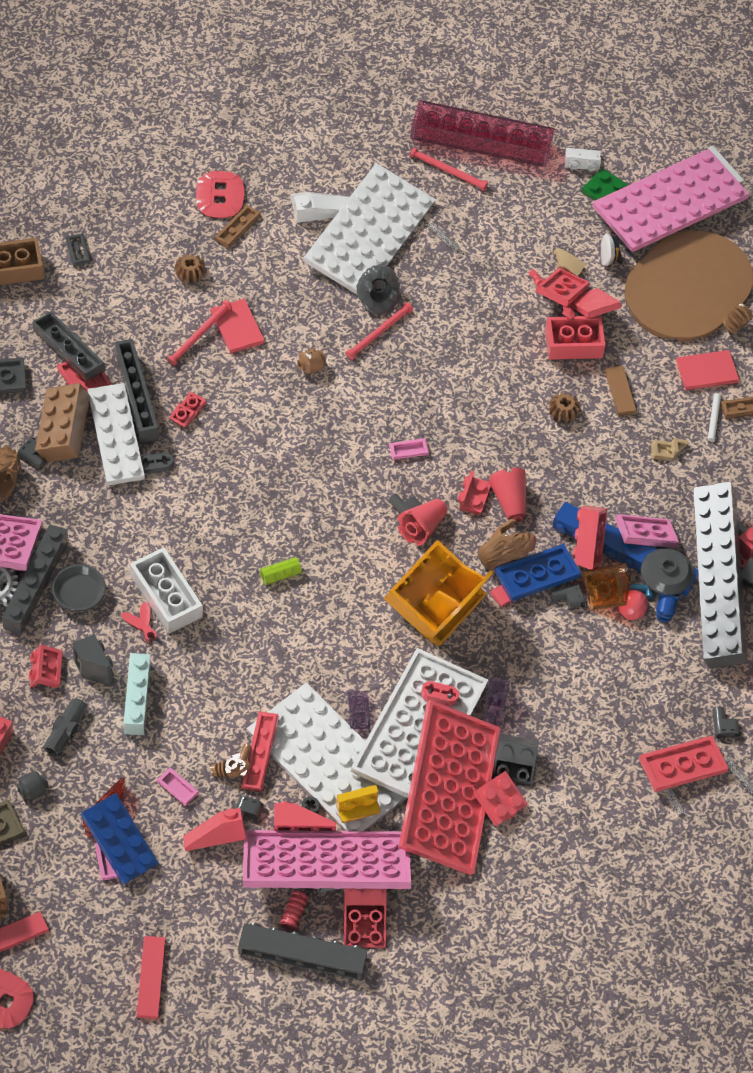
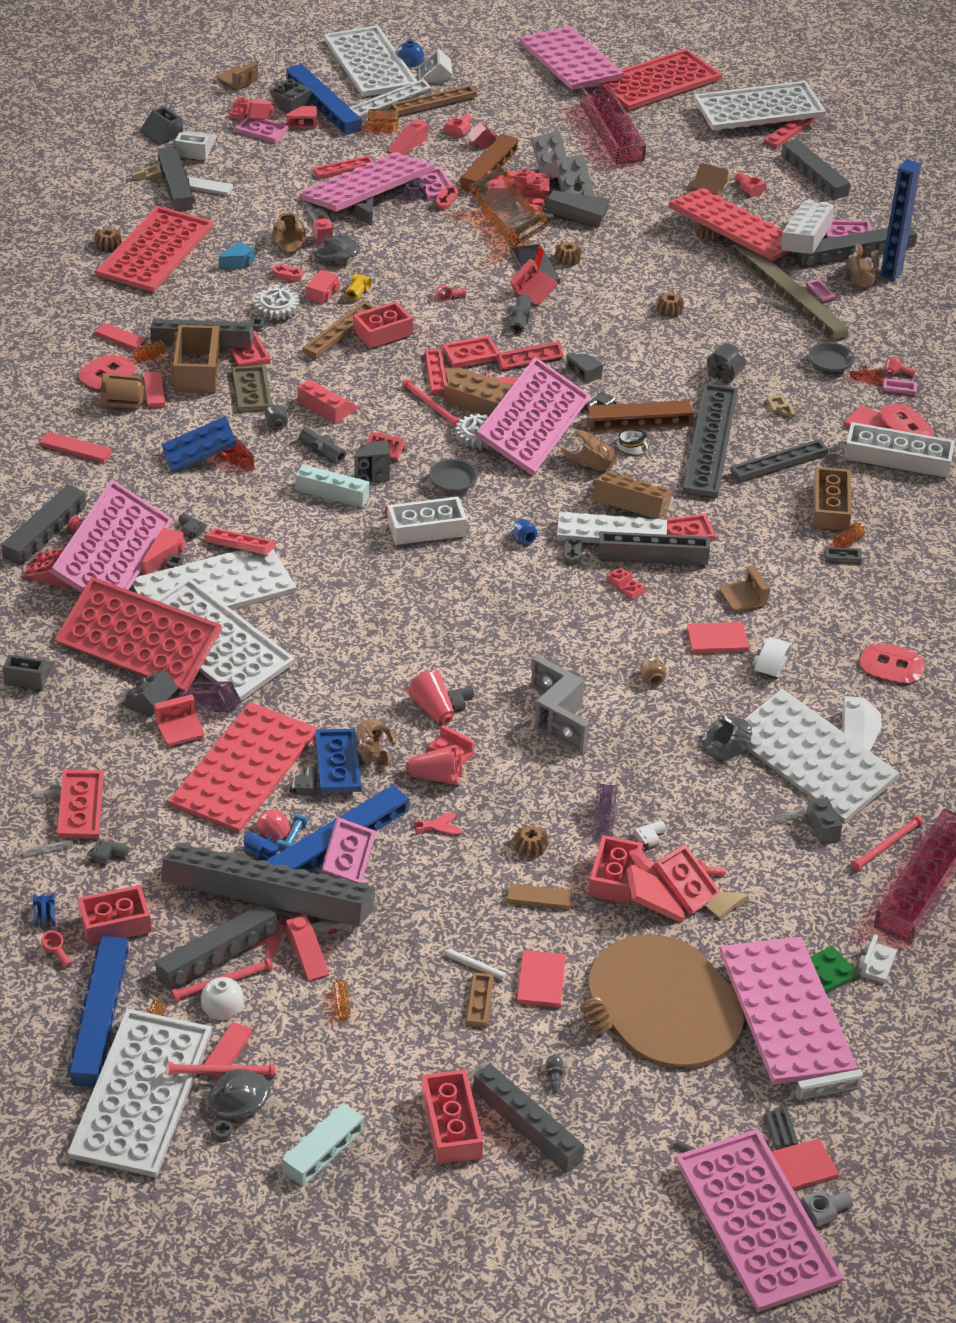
camera: 110 degrees right, 15 degrees down
(35, 579) = (479, 455): dark grey brick -> none
(41, 971) = (121, 391): none -> medium nougat cylinder
(52, 247) = (849, 535): none -> clear orange piece
(68, 346) = (721, 518): dark grey piece -> none
(146, 506) = (524, 532): none -> blue head
(167, 311) = (747, 593): none -> medium nougat bracket
(177, 786) = (235, 495): bright pink tile -> none
(190, 268) = (796, 617): medium nougat gear -> none
(220, 829) = (176, 501): coral slope -> none
(226, 305) = (739, 628): coral bar -> none
(233, 767) = (234, 523): medium nougat piece -> none
(237, 226) = (845, 666): medium nougat tile -> none
(256, 274) = (772, 656): none -> white brick
(280, 571) = (420, 598): lime axle -> none
(358, 804) = (152, 575): yellow bracket -> none
(359, 710) = (254, 611): clear purple slope -> none
(393, 416) = (559, 703): none -> light grey bracket
(407, 308) = (701, 760): coral bar -> none
(408, 449) = (524, 717): bright pink tile -> none
(437, 593) = (341, 678): light orange plate -> none
(440, 693) = (232, 652): coral beam -> none
(448, 209) = (824, 820): none -> dark grey brick
(500, 798) = (114, 671): coral plate -> none
(506, 362) = (604, 812): none -> clear purple slope
(515, 330) = (648, 834): none -> white piece
(529, 876) = (26, 672): none -> dark grey slope
(543, 720) = (178, 720): none -> coral bracket
(568, 652) = (243, 767): none -> coral plate
(571, 483) = (439, 824): none -> coral piece
(590, 536) = (349, 790): coral slope -> none
(607, 586) = (300, 801): clear orange slope -> none
(610, 250) = (727, 933): white piece -> none
(667, 450) = (449, 910): tan slope -> none
(667, 571) = (291, 847): dark grey piece -> none

